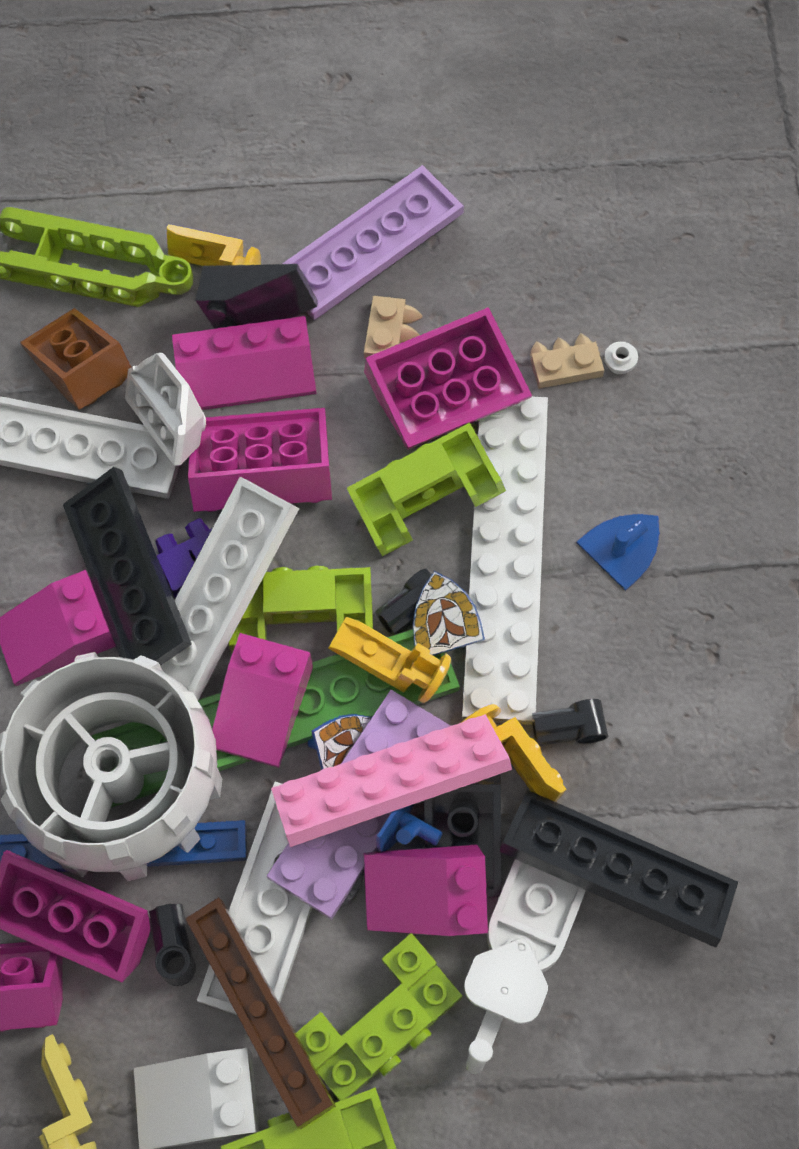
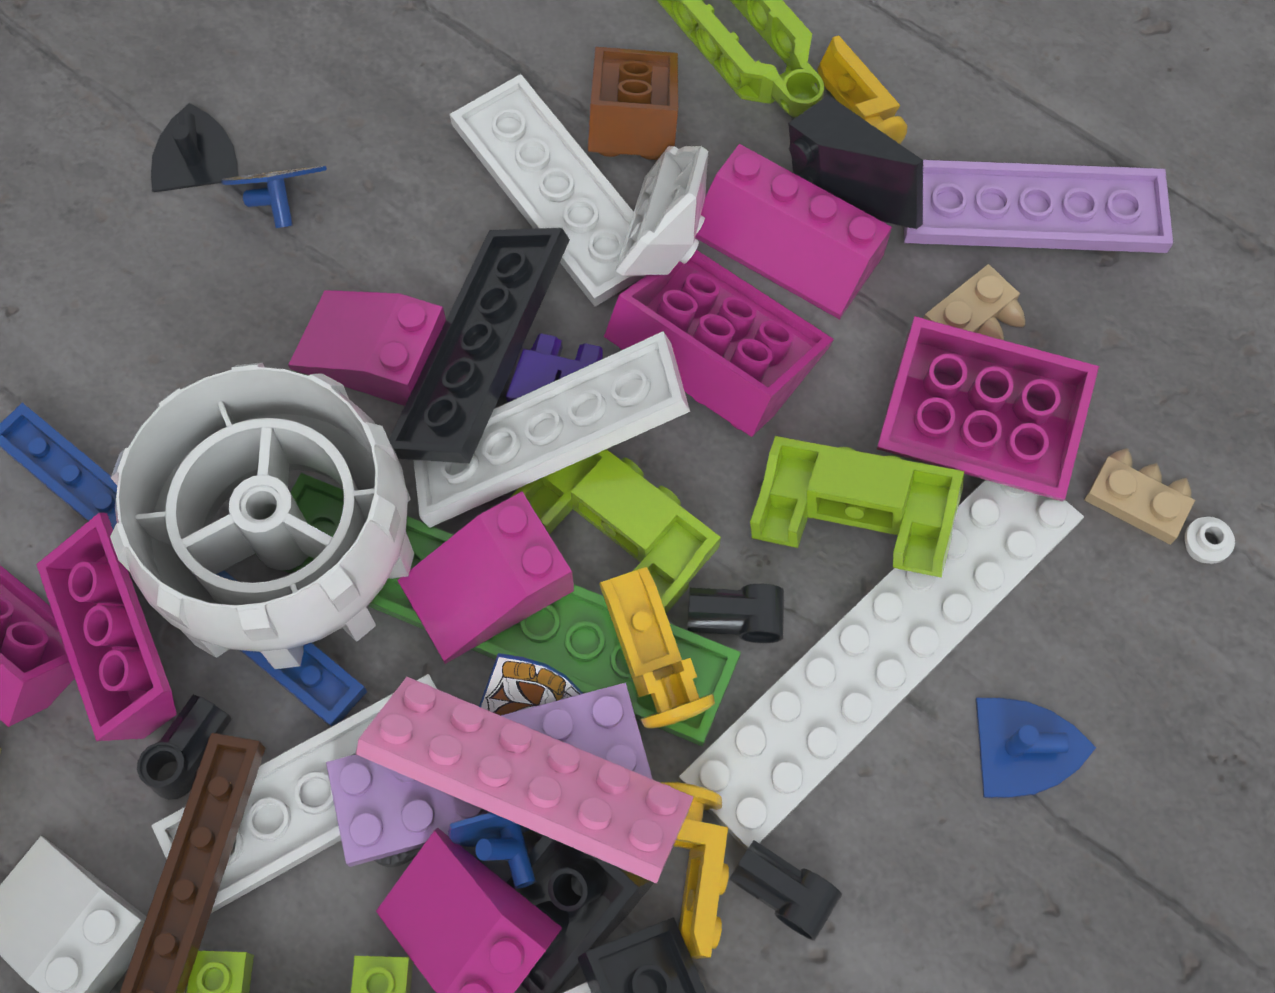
camera: 40 degrees right, 0 degrees up
(445, 617) = (750, 657): shield -> none

